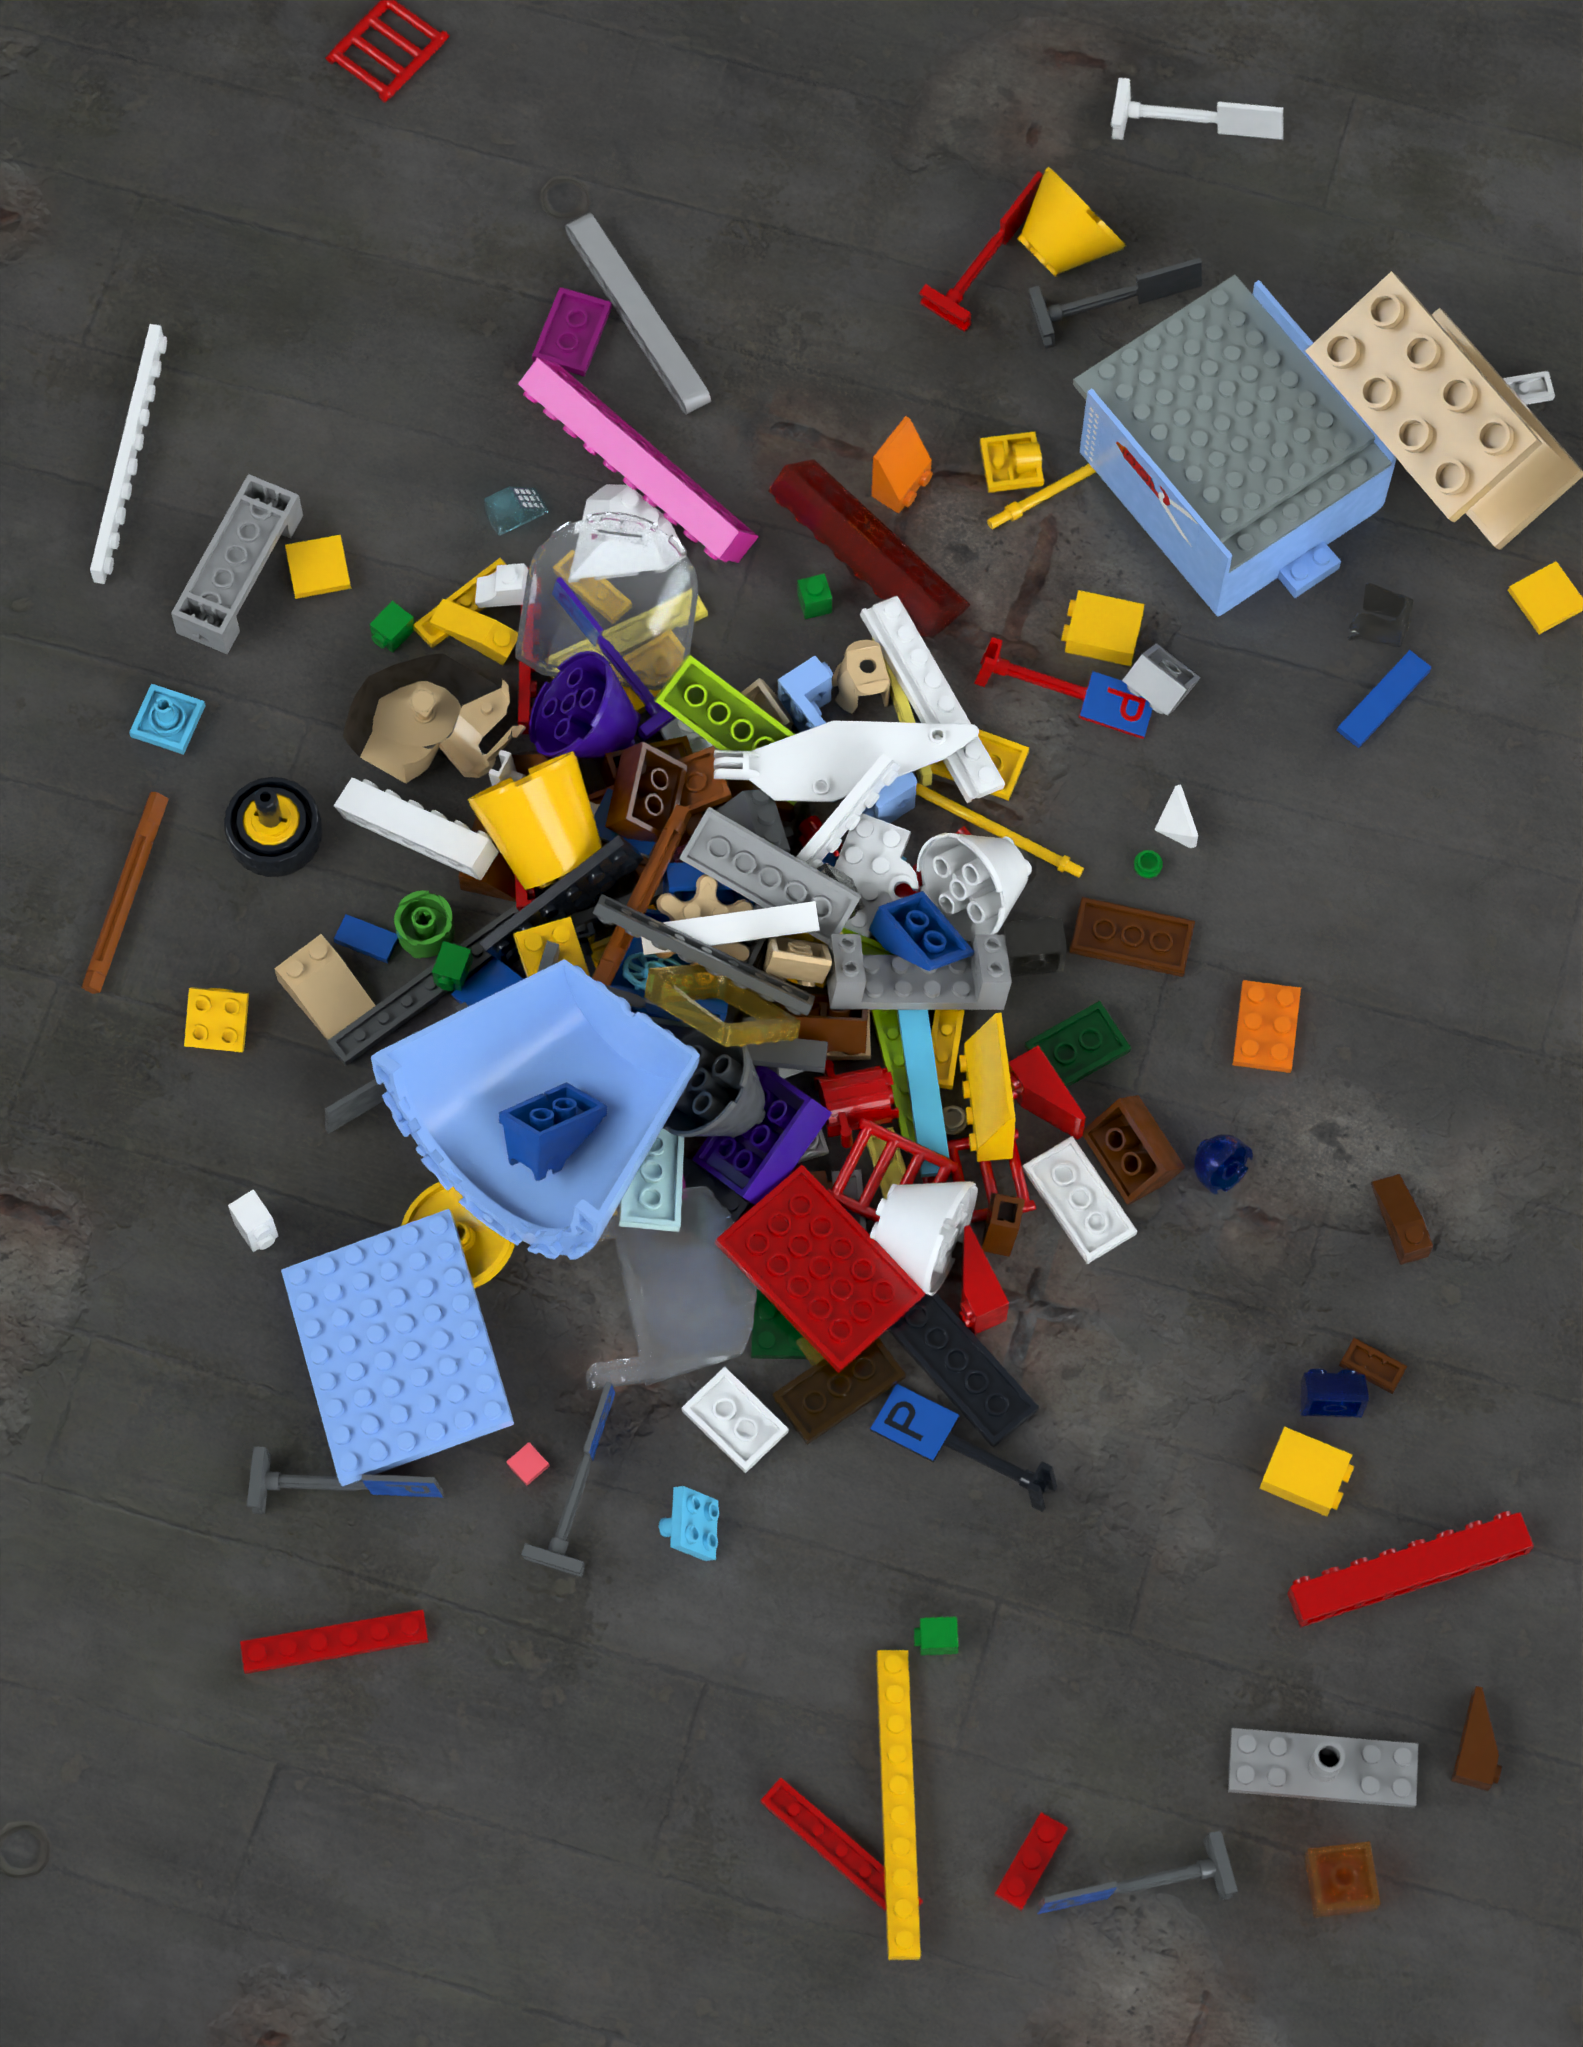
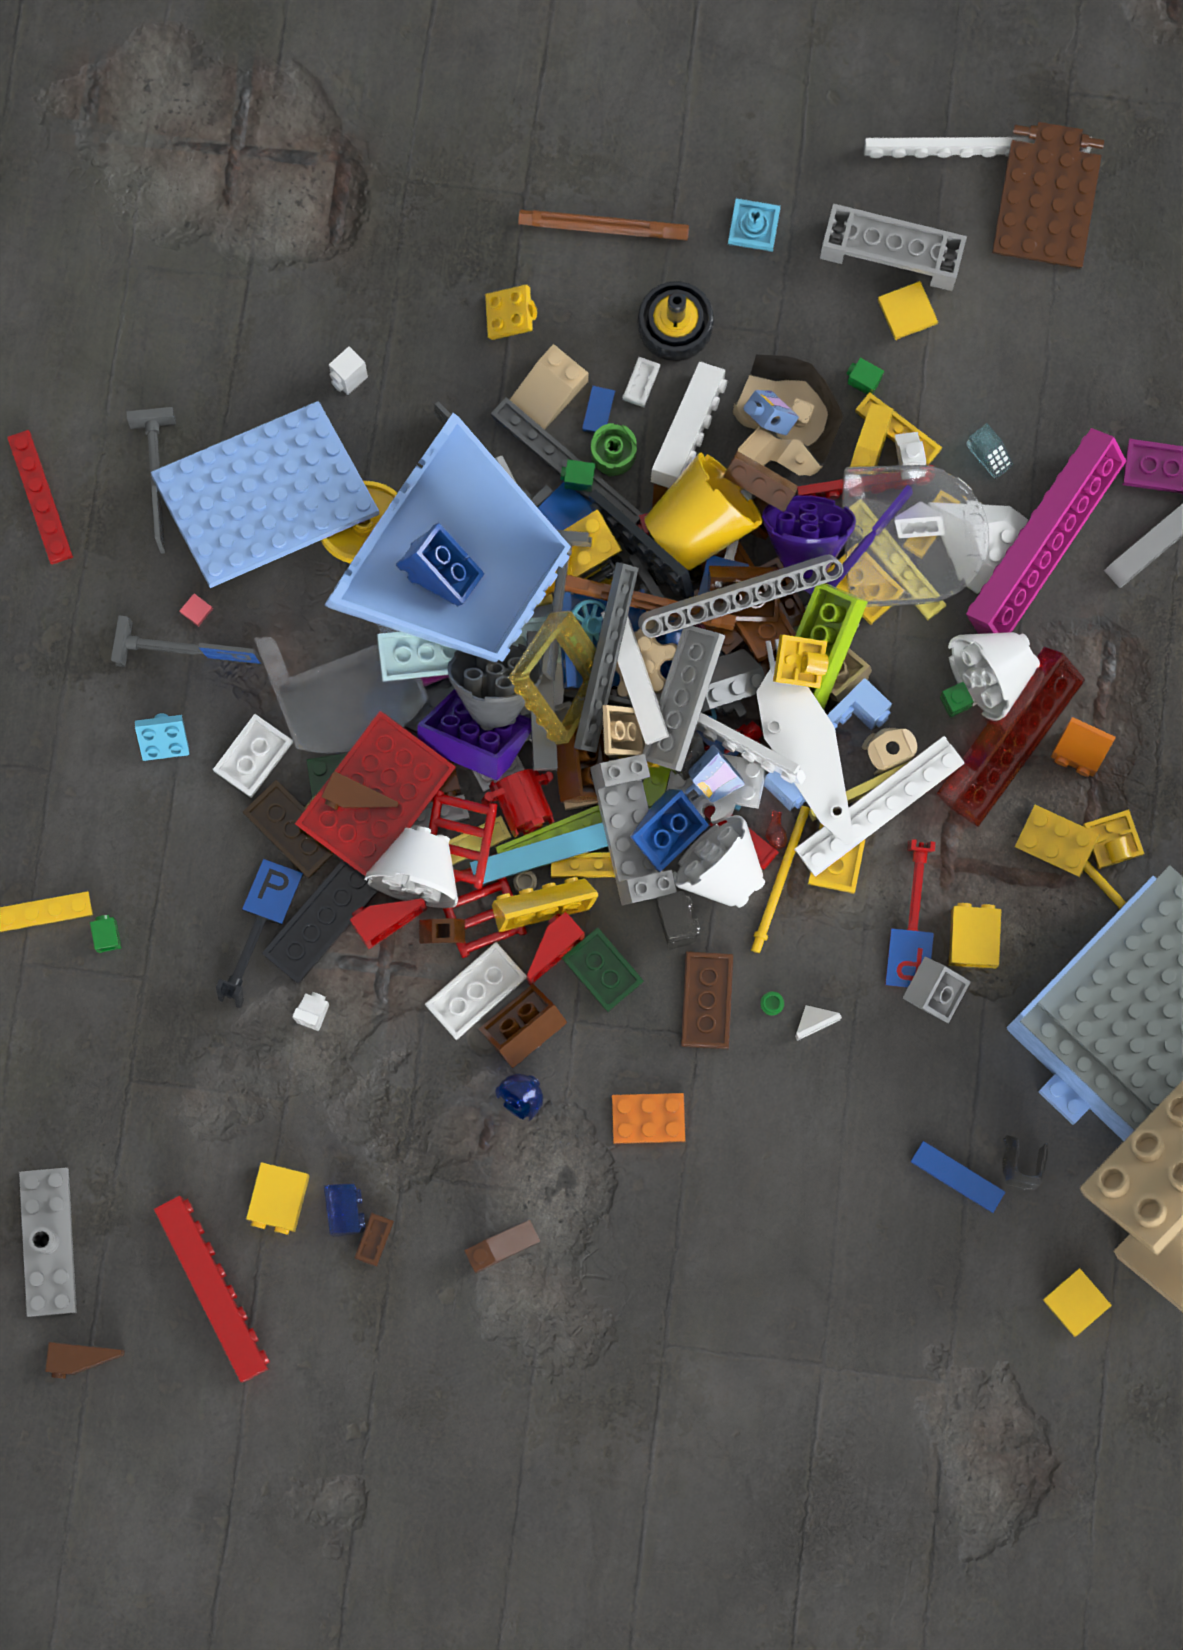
camera: 80 degrees right, 10 degrees up
(210, 385) = (1048, 195): none -> reddish brown plate
(341, 881) = (641, 382): none -> white plate
(418, 731) = (766, 405): none -> medium blue torso
(513, 746) = (760, 481): none -> reddish brown brick
(594, 587) = (919, 522): none -> white slope
(658, 787) = (751, 598): none -> light grey beam
(751, 735) = (800, 661): none -> yellow plate
(793, 542) = (993, 669): none -> white cone
(818, 1290) = (350, 794): none -> reddish brown slope
(869, 867) = (713, 776): none -> medium blue torso
(938, 824) = (776, 833): none -> clear red animal
(1004, 519) = (1057, 840): none -> yellow plate
(1078, 1393) = (311, 1011): none -> white arch

